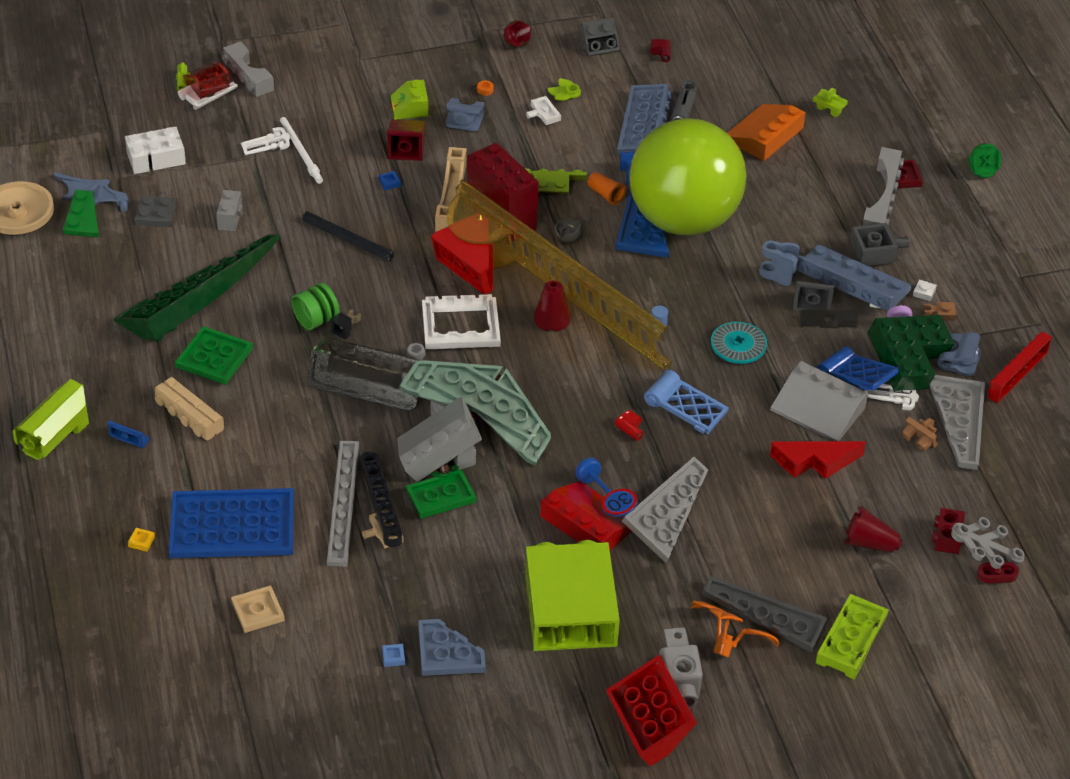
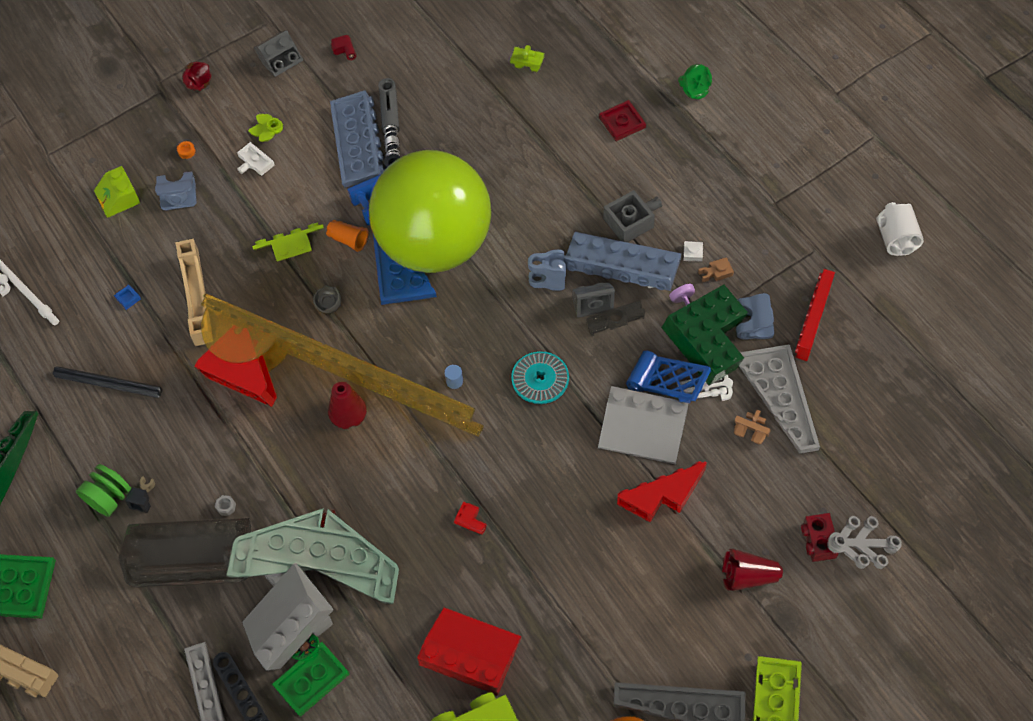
camera: 15 degrees left, 15 degrees up
(406, 139) = (127, 242): dark red slope -> none
(453, 339) = (275, 469): white hinge -> none
(505, 183) = (247, 281): dark red brick -> none
(616, 502) = (495, 629): blue piece -> none
(665, 510) = (542, 618): light grey wing -> none
(667, 389) = (489, 464): medium blue piece -> none
(767, 129) = (476, 110): orange slope -> none
(888, 166) = (610, 117): light grey arch -> none
(1005, 574) = (883, 574): dark red plate -> none

